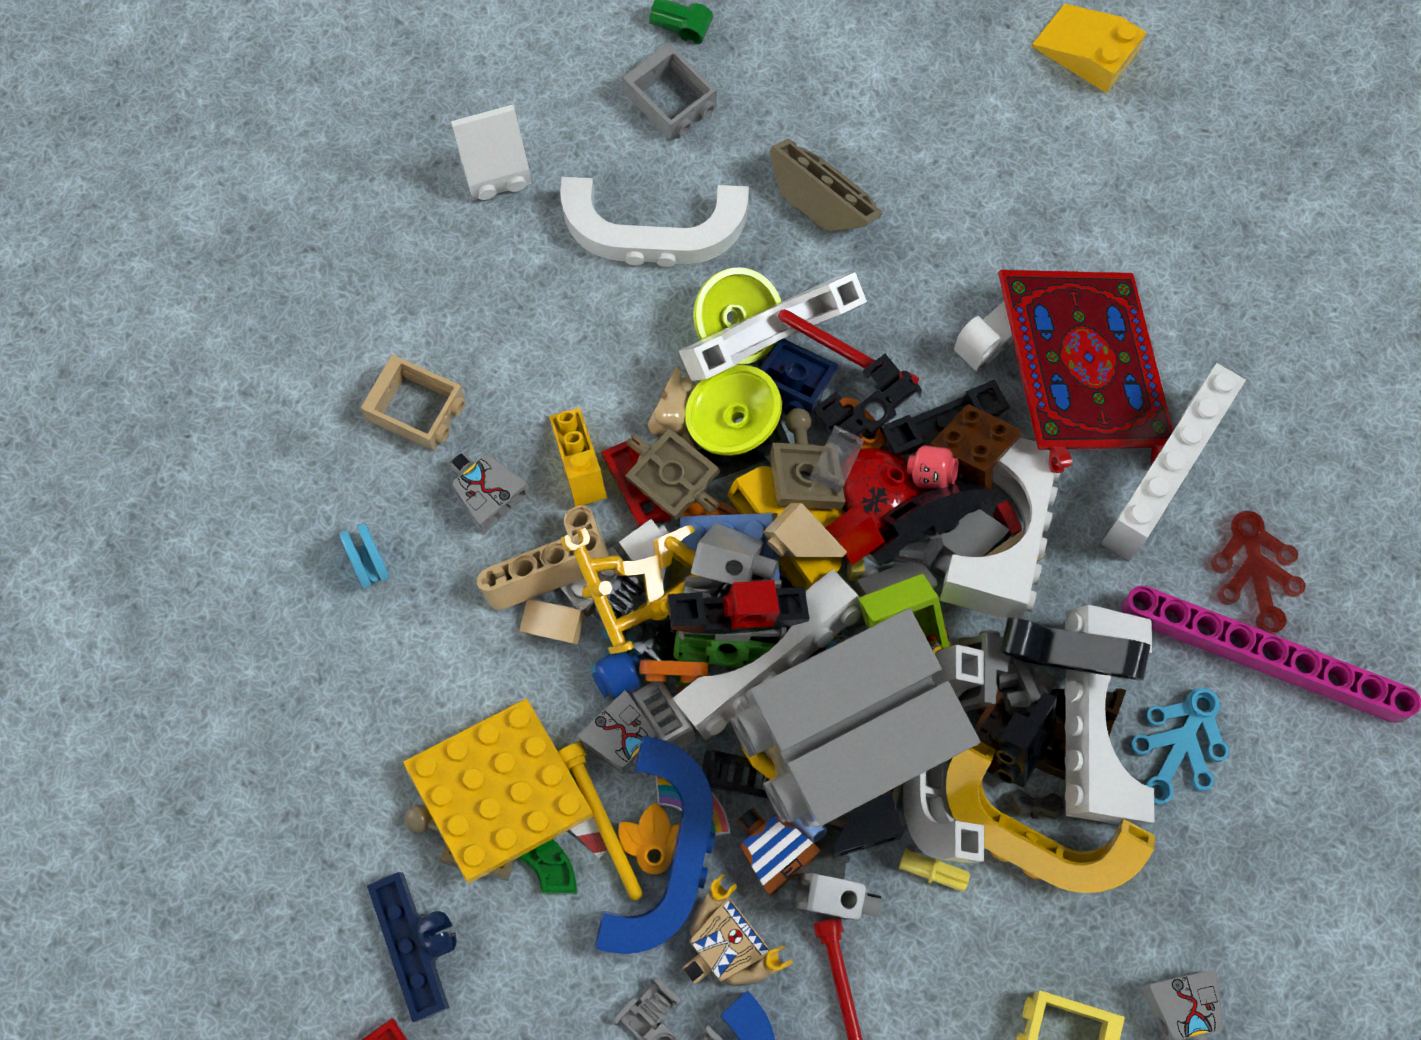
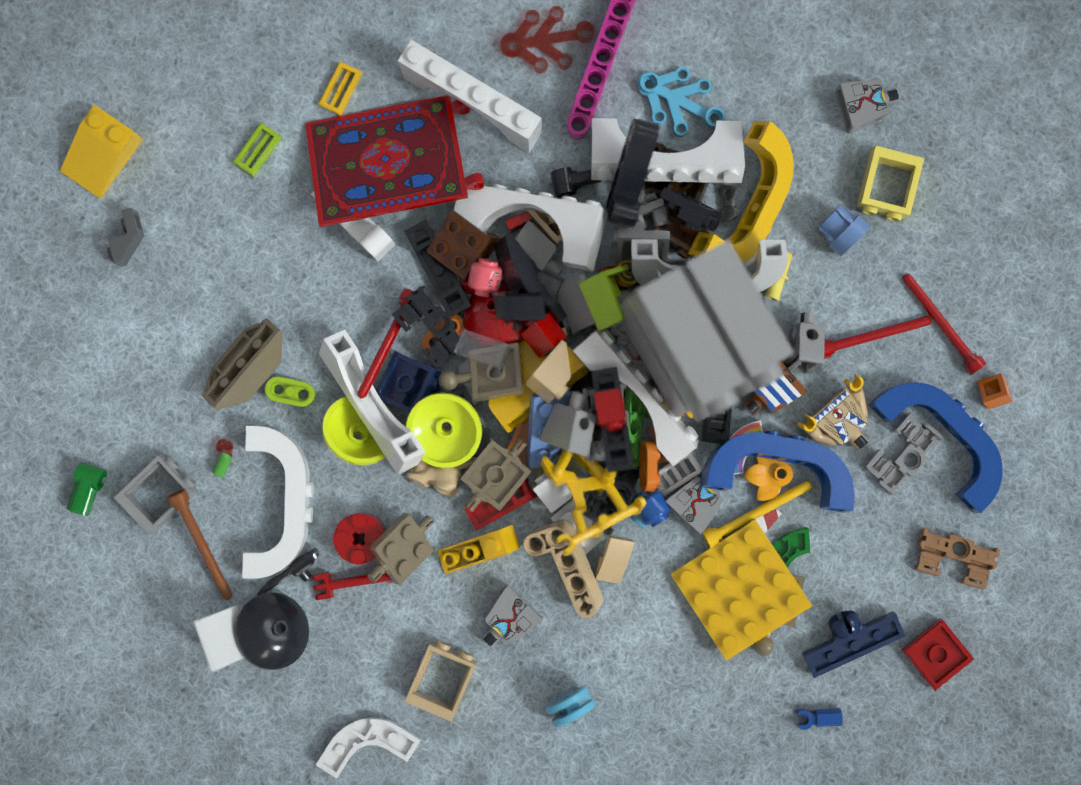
camera: 90 degrees left, 15 degrees up
(311, 894) = (821, 718): none -> blue bar
(358, 318) = (367, 732): none -> white plate
(486, 186) = (258, 635): none -> black dish
(545, 280) = (330, 585): none -> red hinge
(570, 244) = (297, 568): none -> black piece
(584, 357) = (401, 549): none -> dark tan plate
(601, 313) = (345, 537): none -> red brick
(657, 110) = (180, 502): none -> dark orange piece
(720, 170) = (224, 460): none -> arm
(789, 245) = (290, 392): none -> lime plate
(893, 501) = (518, 306): none -> black slope
(972, 66) = (124, 246): none -> dark grey slope
(1000, 962) = (843, 229): none -> medium blue piece
(1063, 589) = (570, 181): none -> black pin
(1081, 219) = (264, 156): none -> lime tile
(1176, 325) = (331, 107): none -> yellow tile

